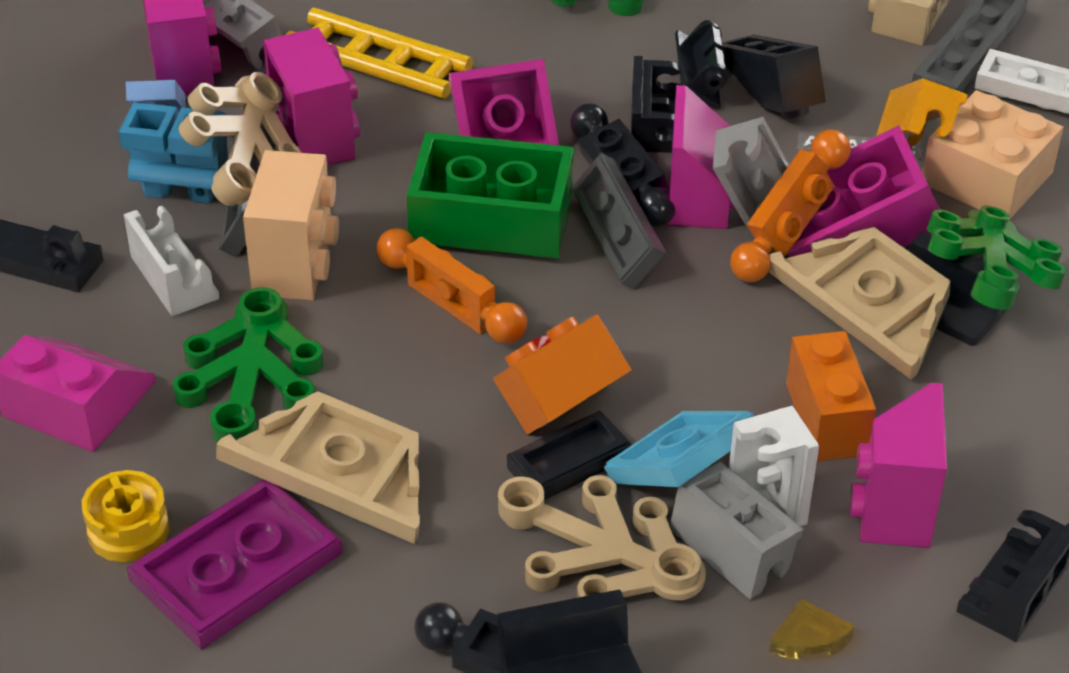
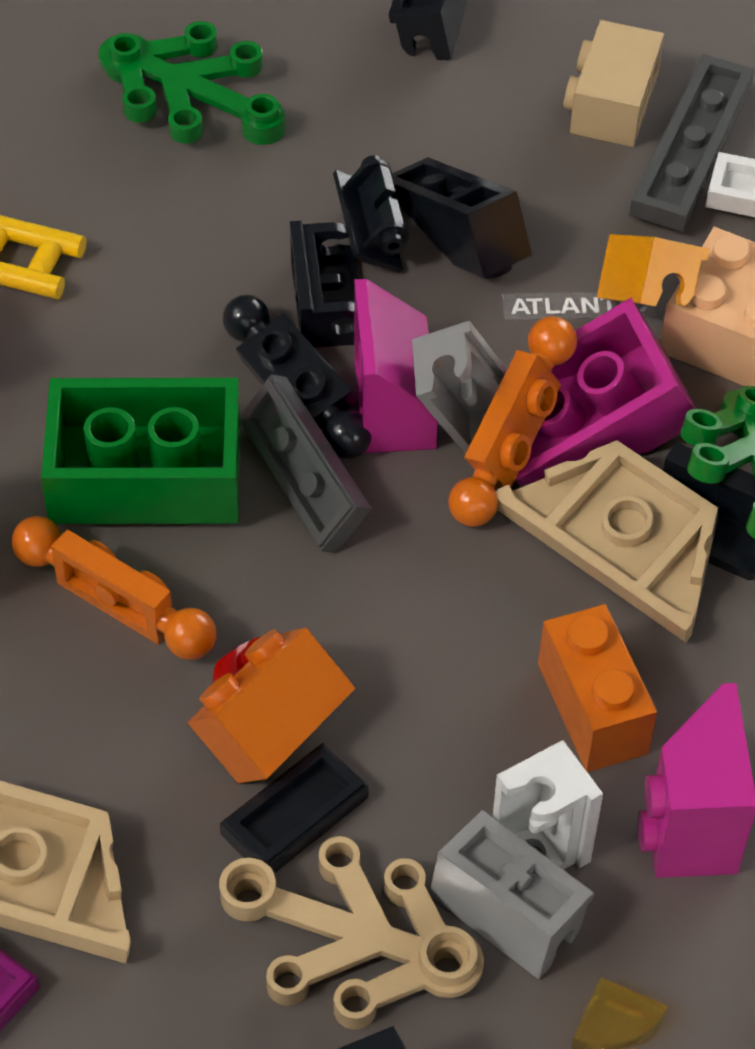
camera: 10 degrees left, 10 degrees up
(505, 103) = (141, 319): dark pink slope -> none
(676, 449) = (430, 793): medium azure tile -> none

